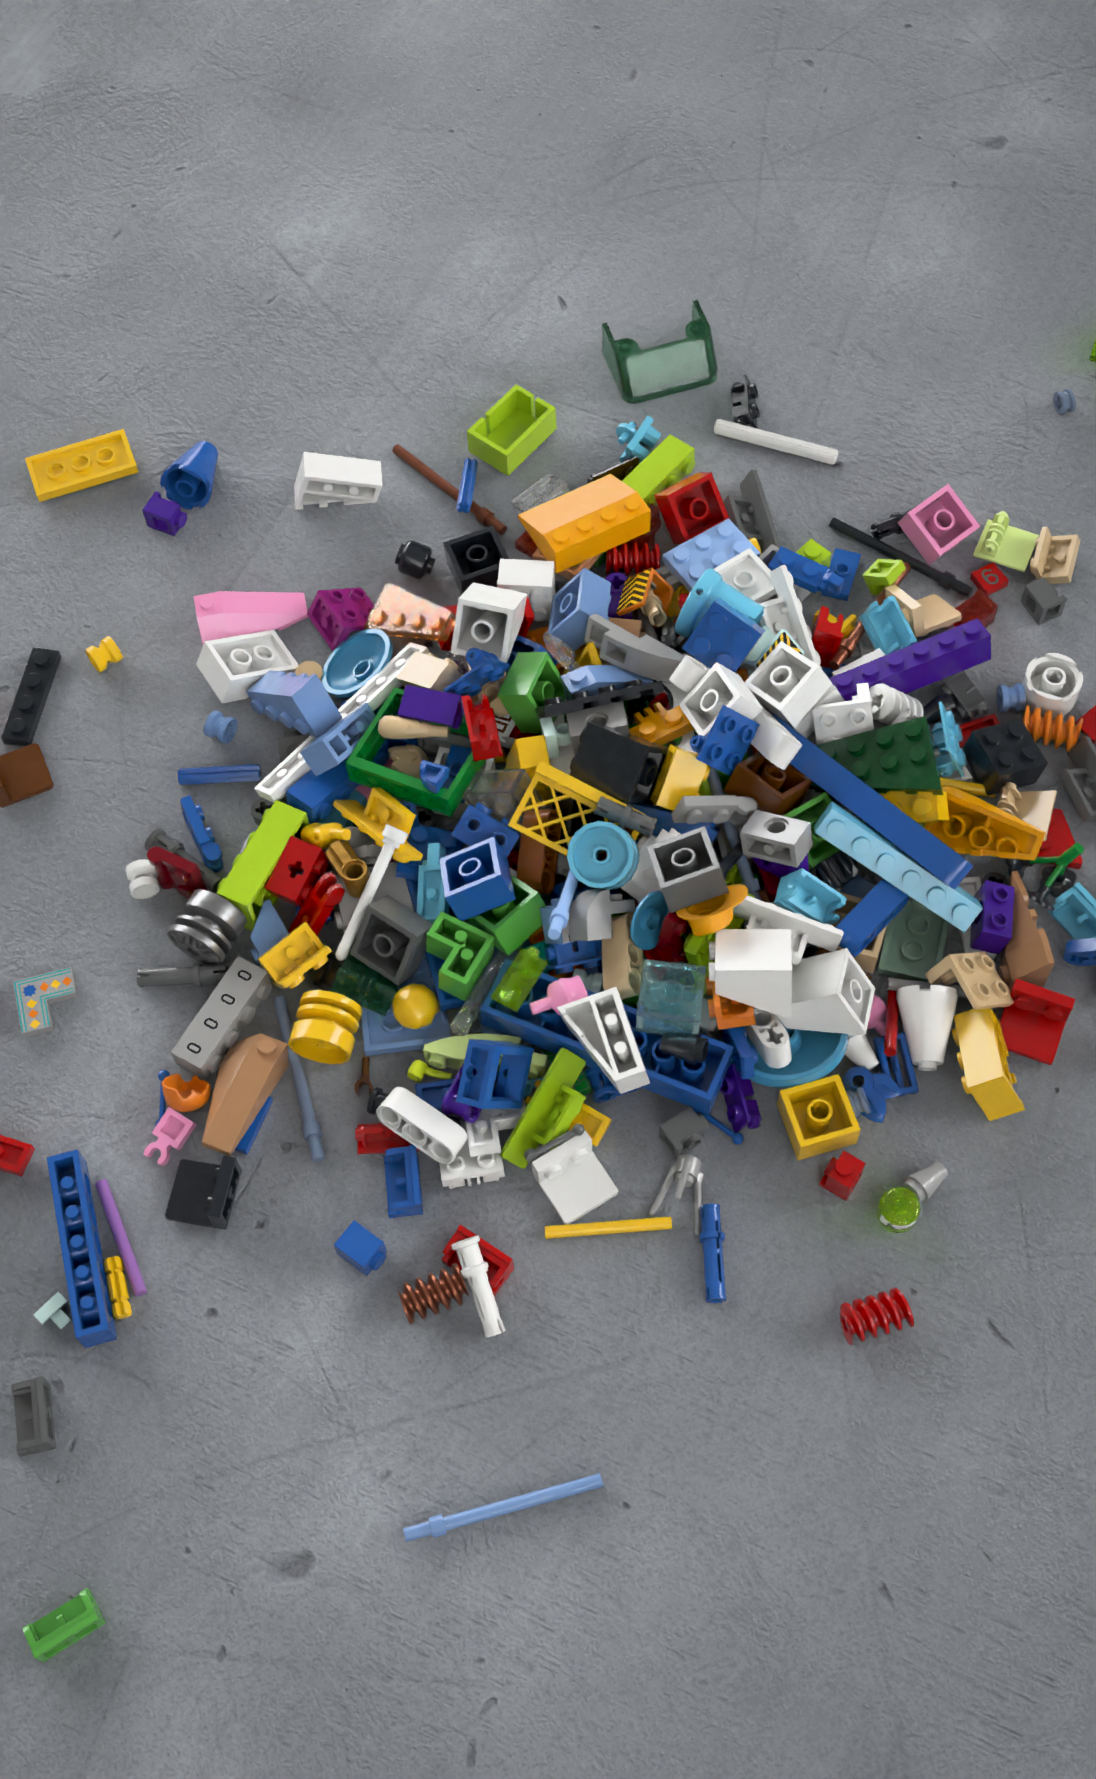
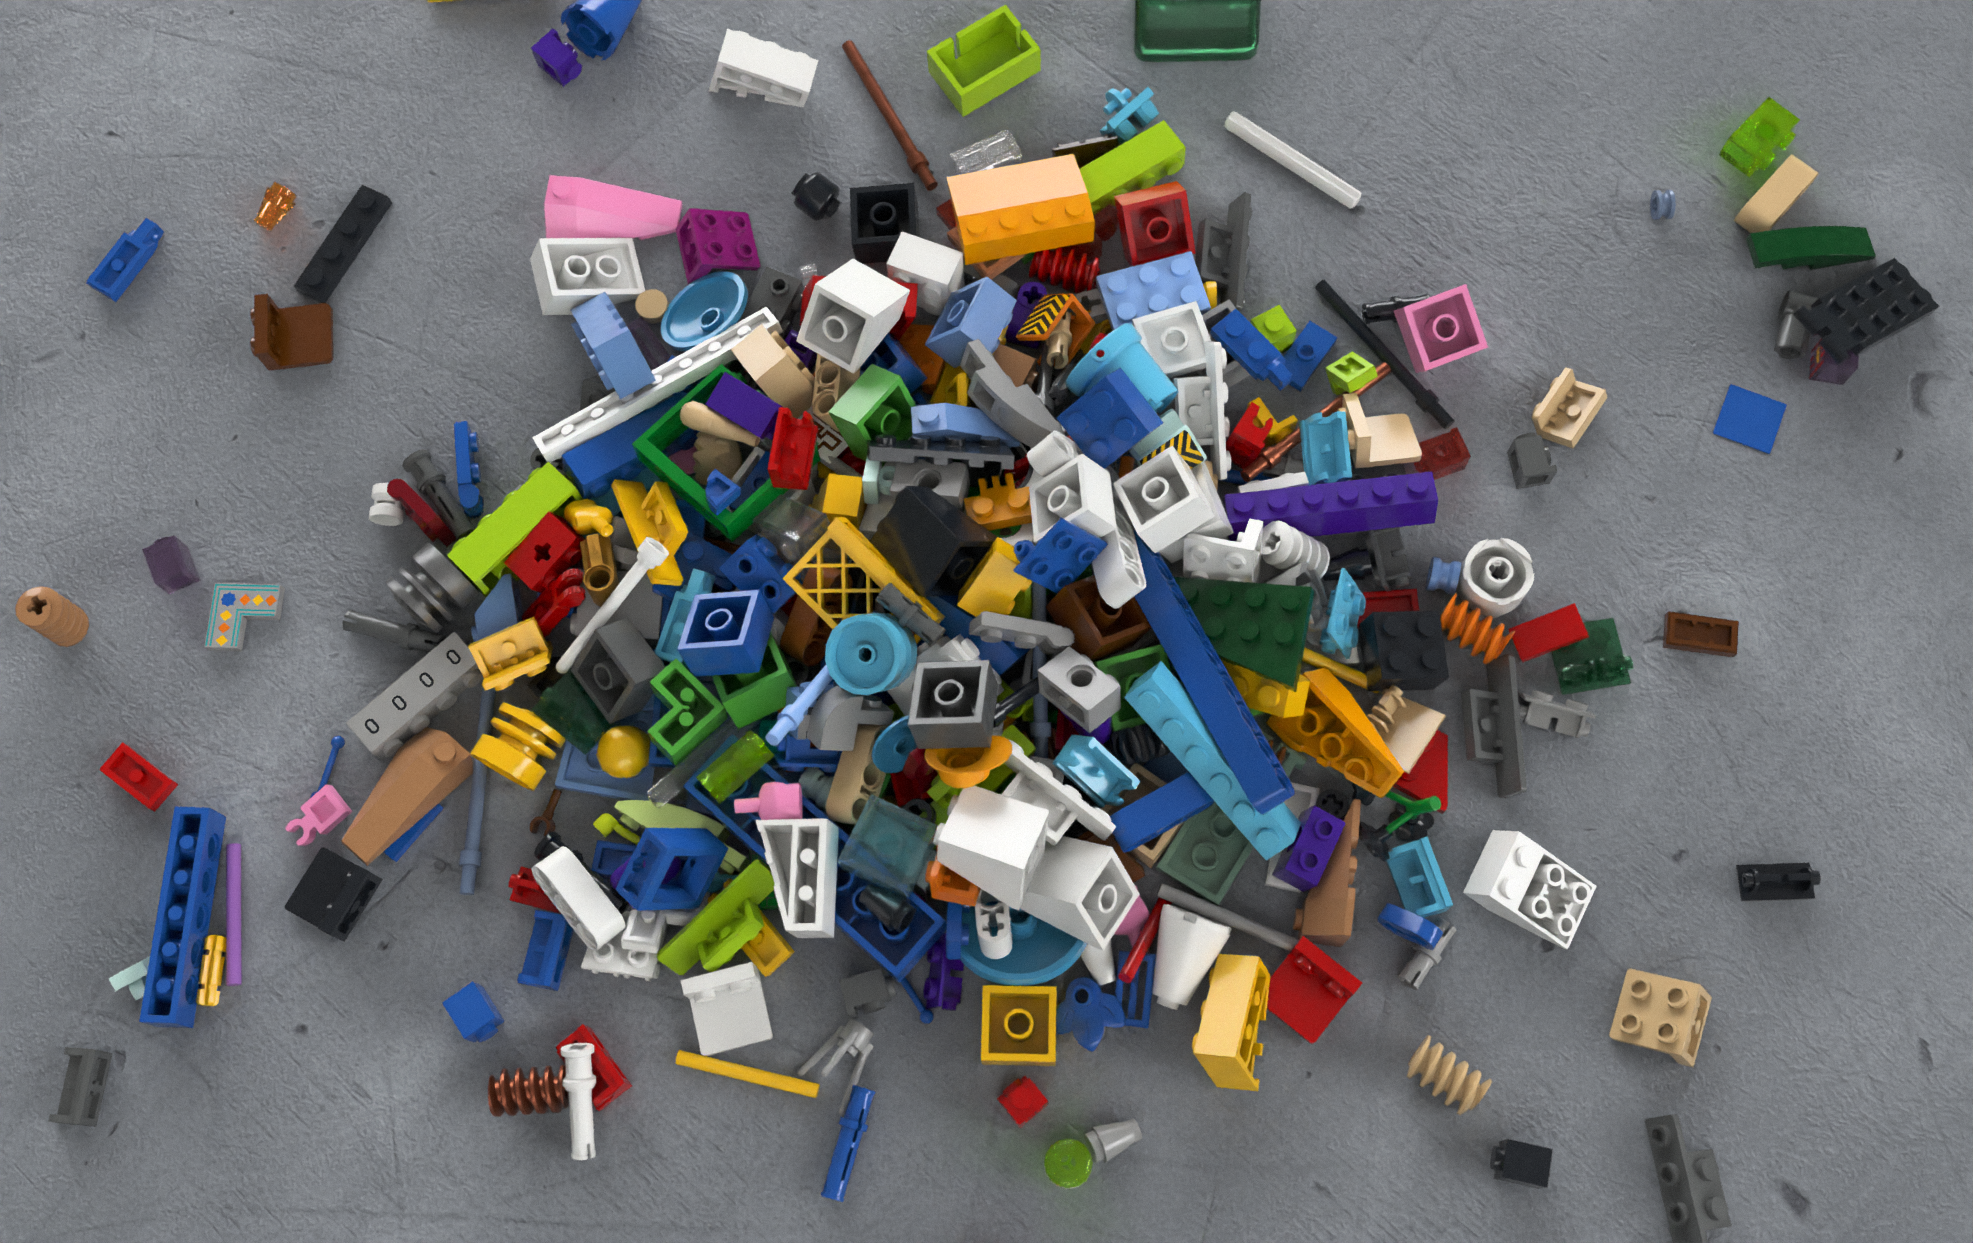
camera: 20 degrees right, 10 degrees up
(106, 652) = (436, 215): yellow wheel -> none
(185, 1095) = (348, 773): orange hair -> none
(219, 774) = (513, 400): blue axle -> none
(220, 727) = (531, 344): medium blue wheel -> none
(338, 741) = (637, 412): medium blue slope -> none
(409, 615) = (775, 271): clear orange wing -> none
(467, 485) = (908, 118): blue axle -> none
(484, 668) = (816, 374): blue hinge -> none
(532, 1154) = (683, 971): dark grey hinge -> none
(561, 652) = (931, 374): clear slope -> none
(745, 395) = (1277, 88): black hinge -> none
(858, 1101) = (1070, 1023): sand blue bush -> none
(976, 977) = (1257, 923): tan bracket -> none
(989, 579) = (1479, 413): red tile -> none
(1005, 543) = (1516, 374): yellowish green hinge -> none

